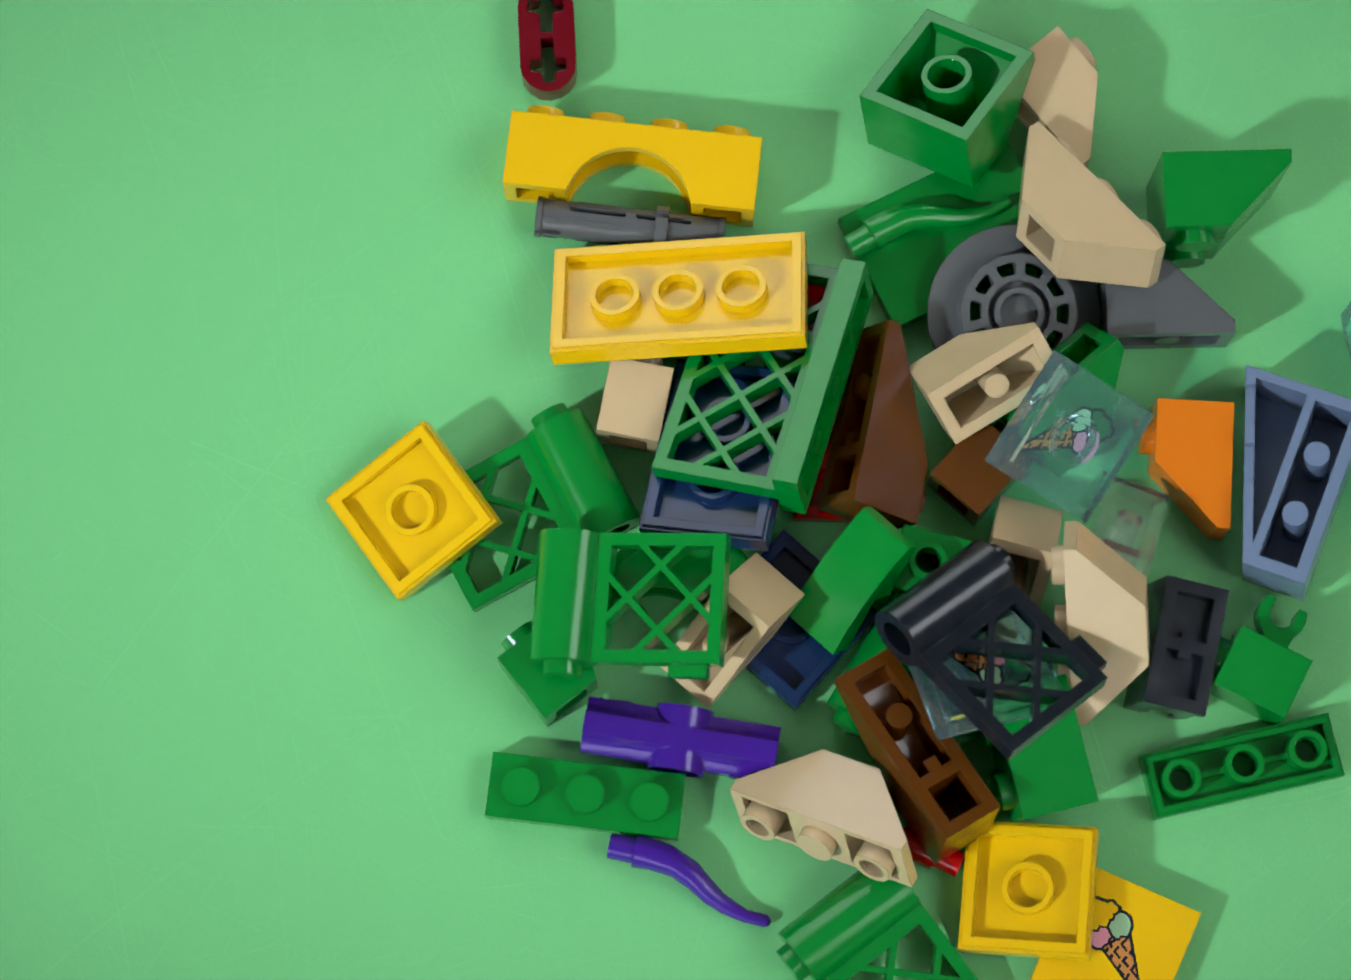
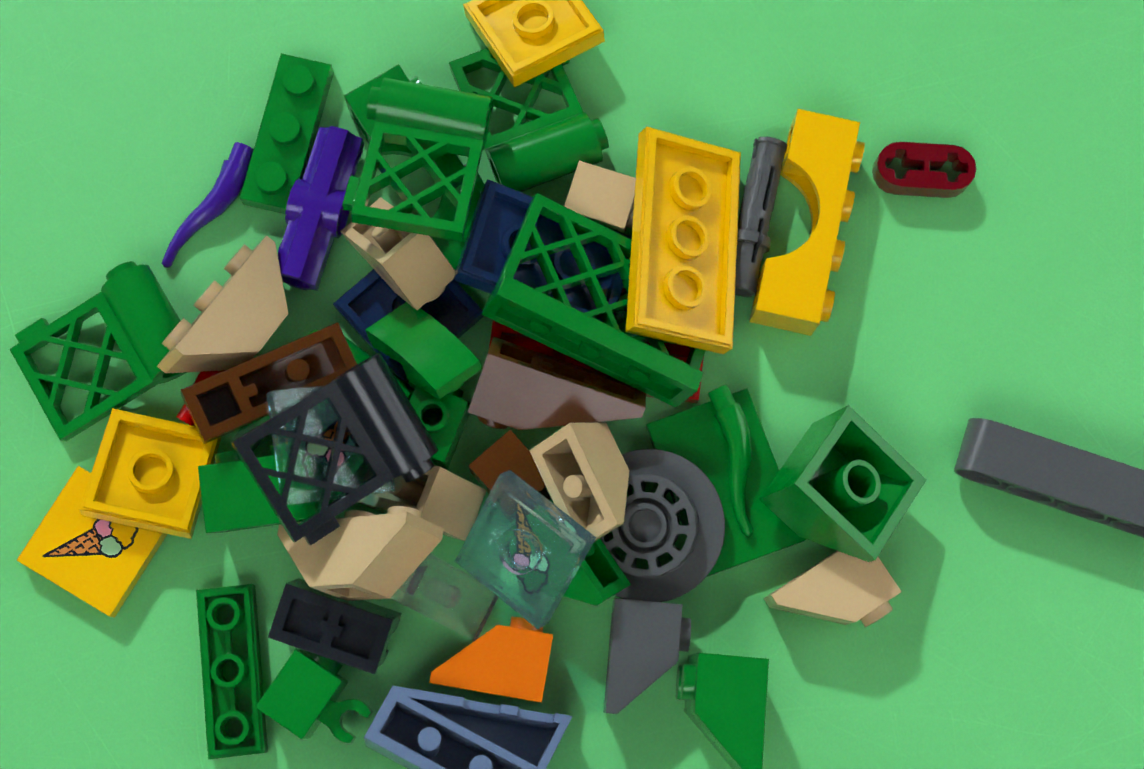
camera: 90 degrees right, 0 degrees up
(1079, 221) = (719, 581): tan slope -> none

